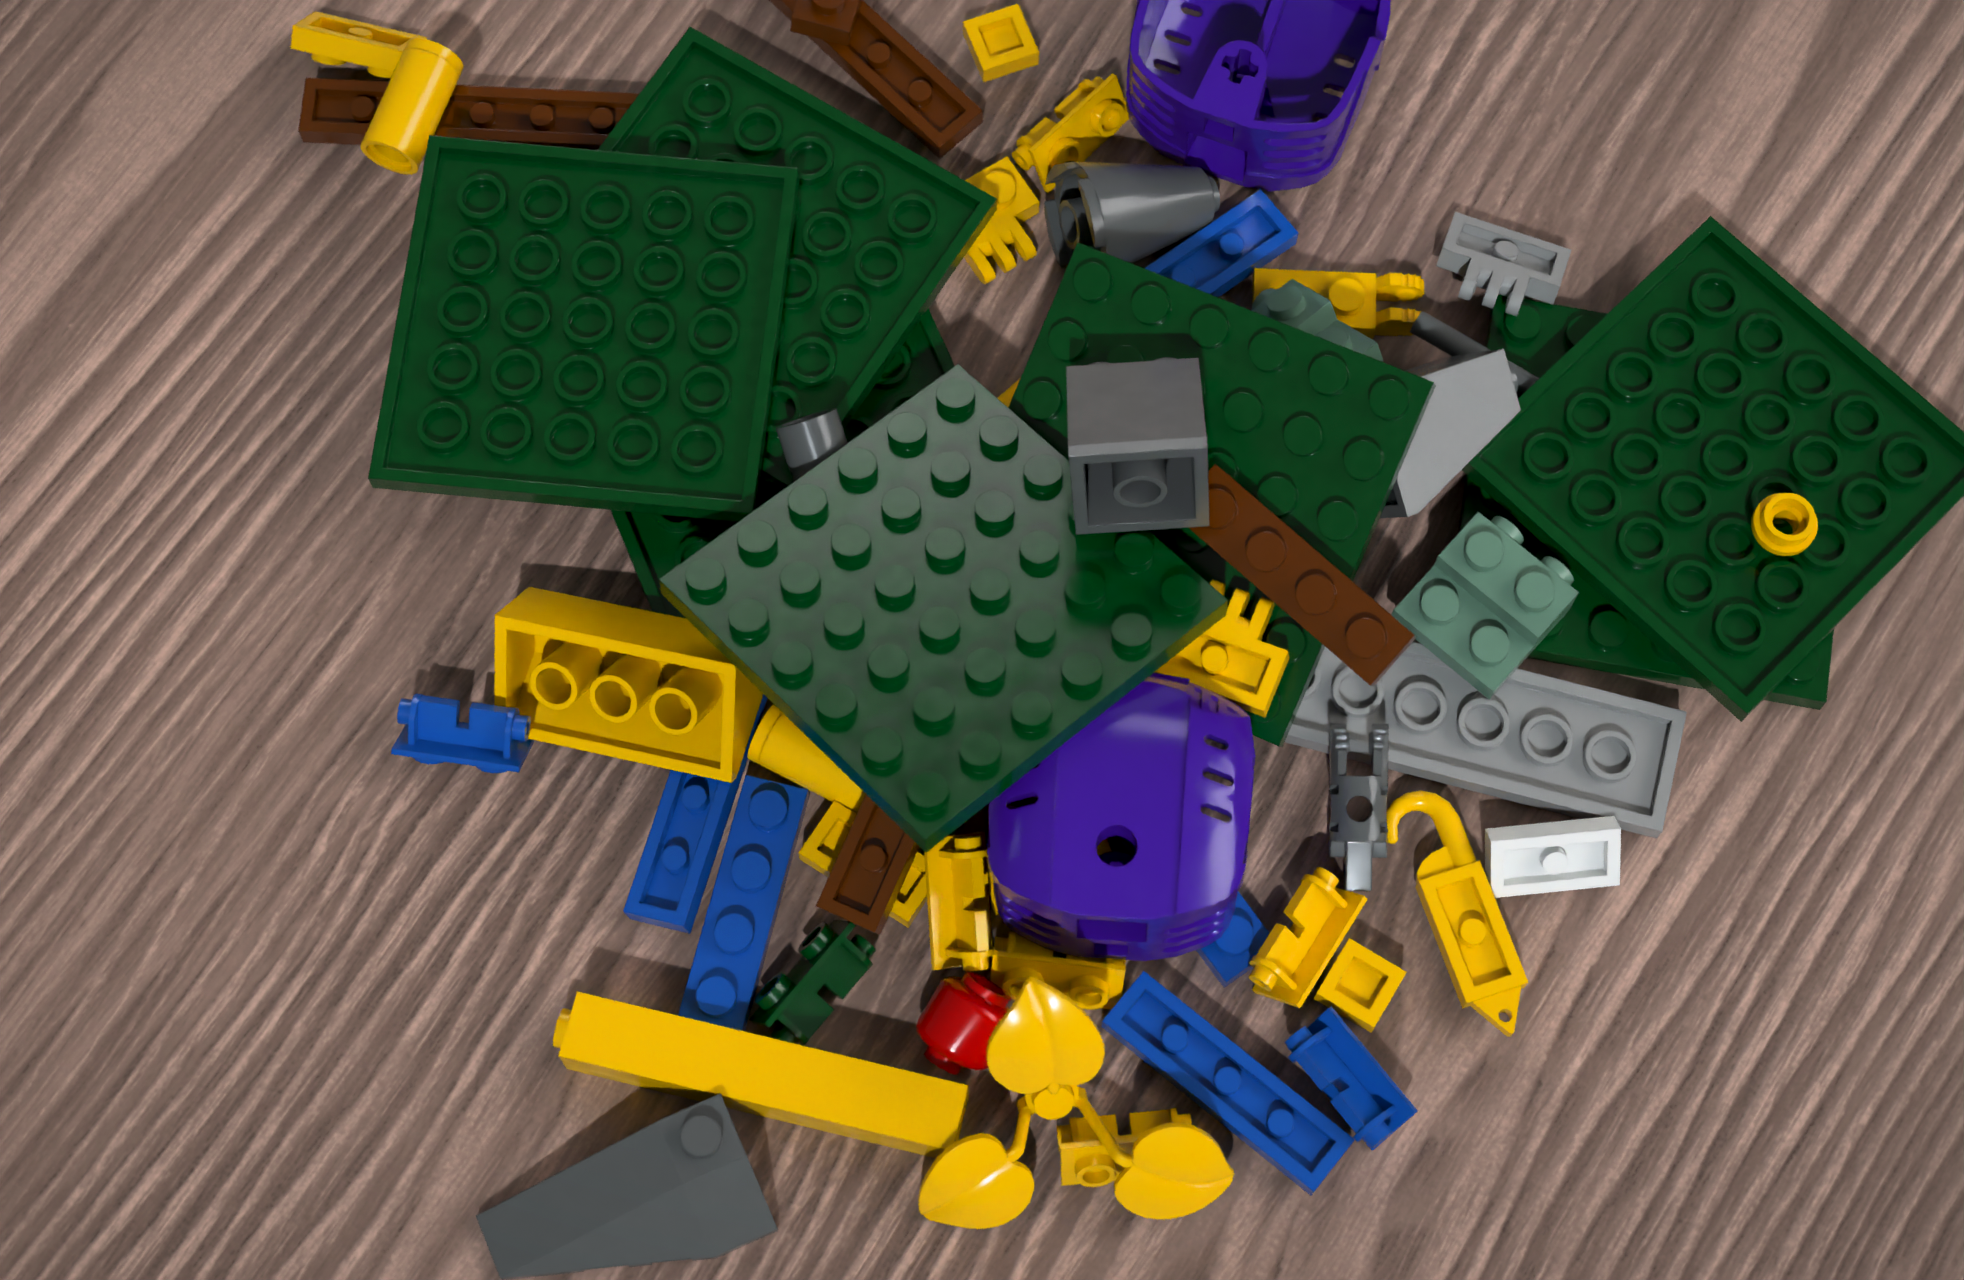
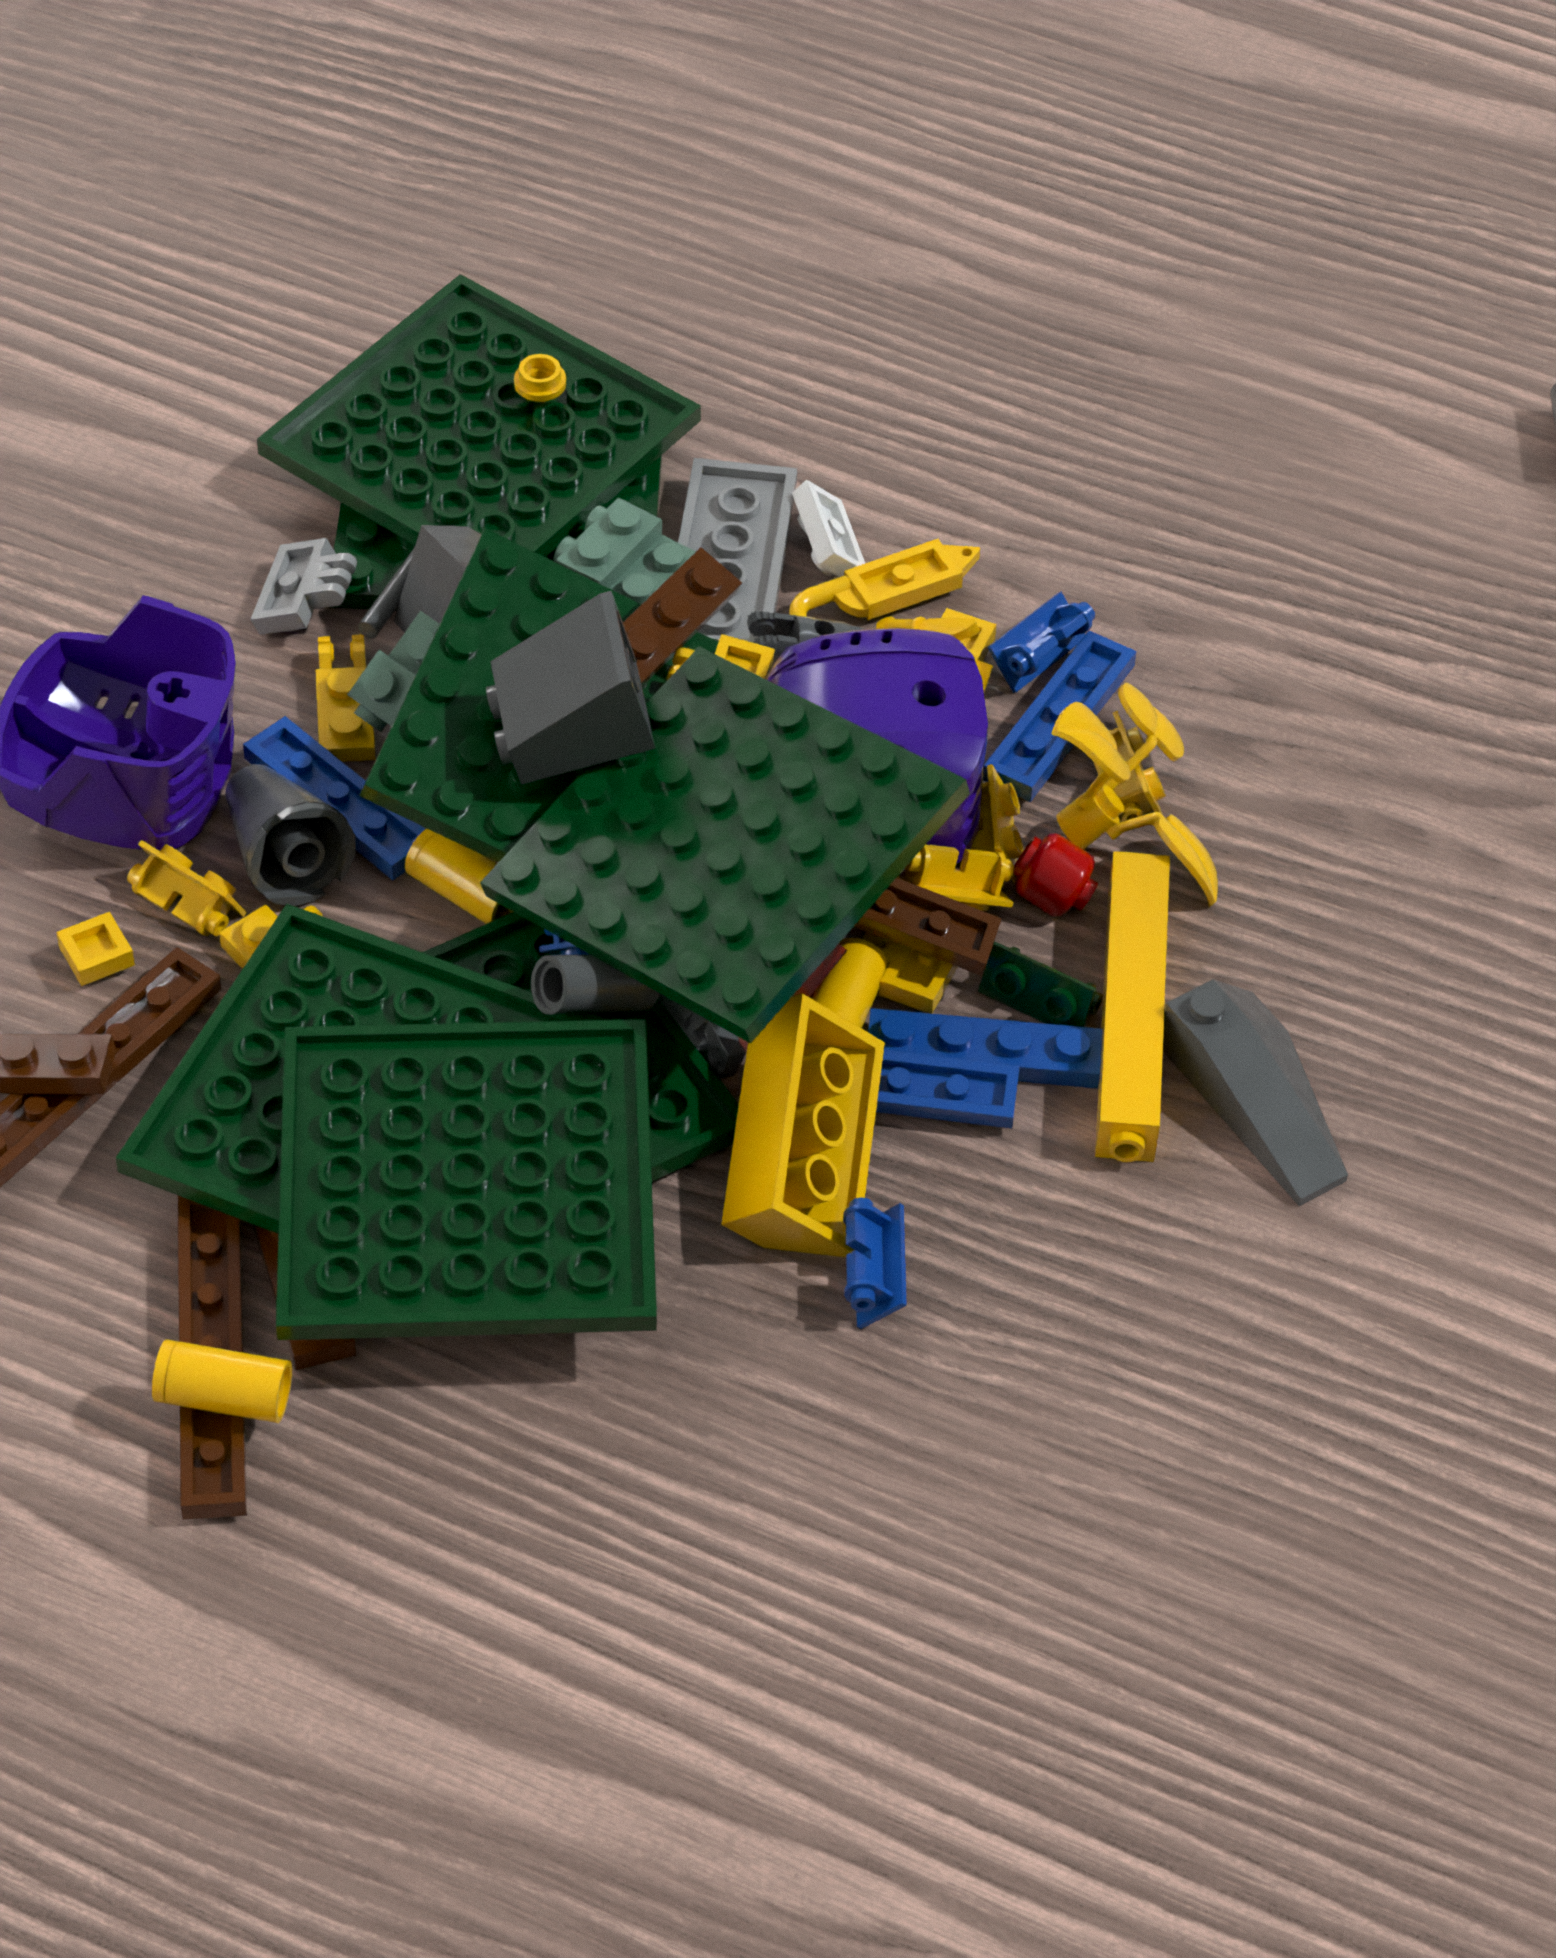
camera: 100 degrees left, 20 degrees down
(343, 40) = (132, 1471): yellow plate -> none
(1367, 938) = (956, 627): none -> yellow piece

